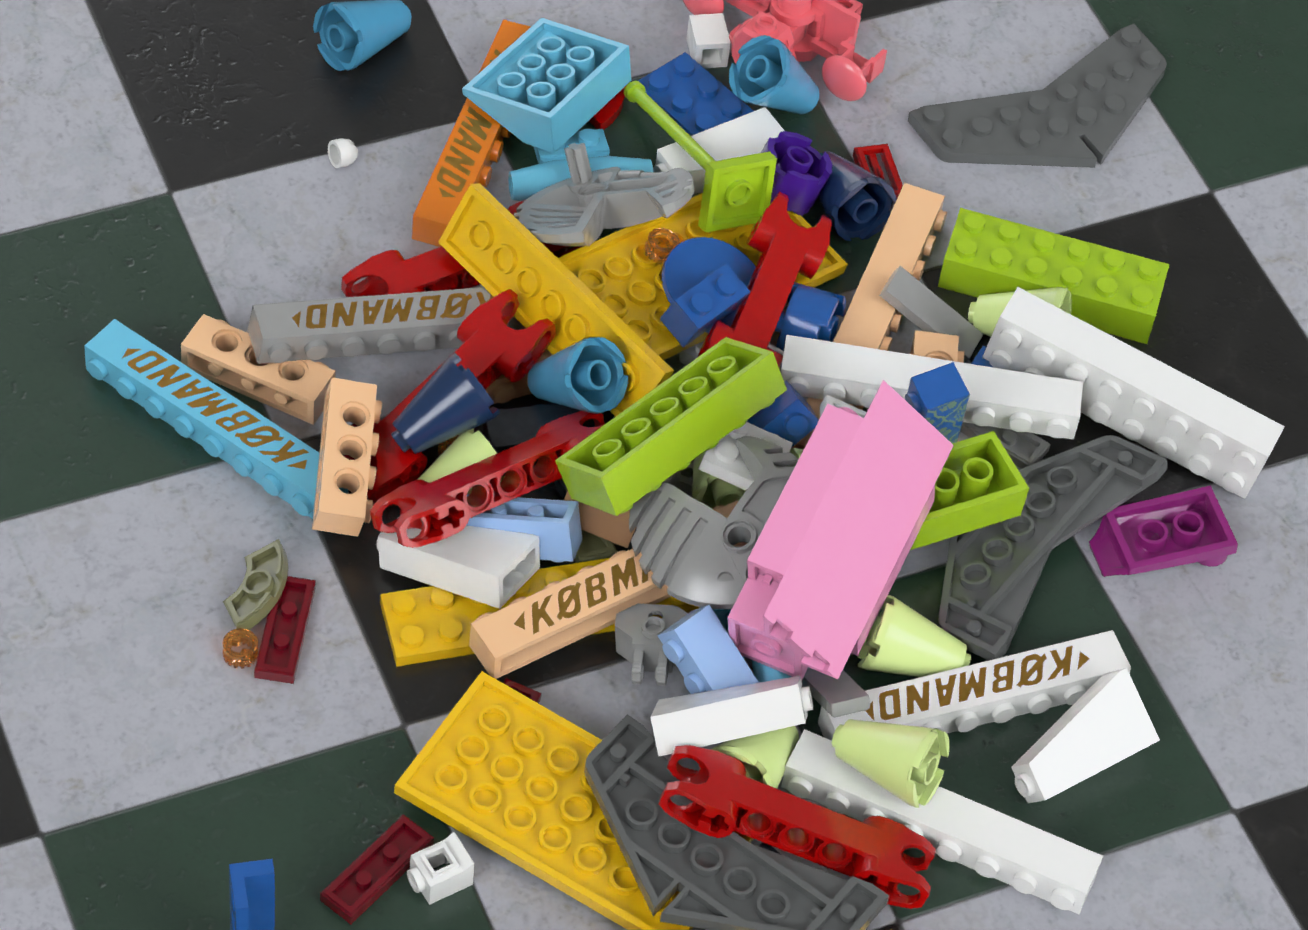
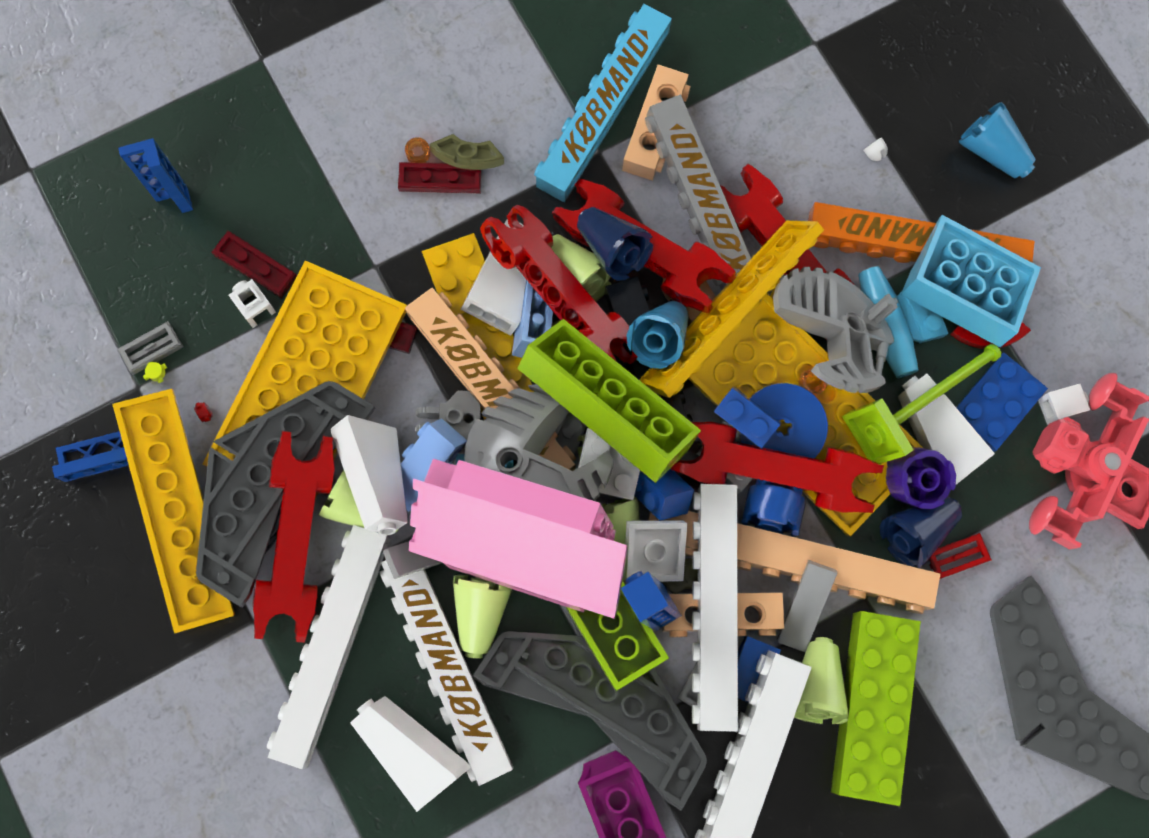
camera: 85 degrees right, 25 degrees up
(334, 509) = (552, 175): light nougat brick -> none
(772, 77) = (1020, 454): dark azure cone -> none
(894, 756) = (352, 599): yellowish green cone -> none

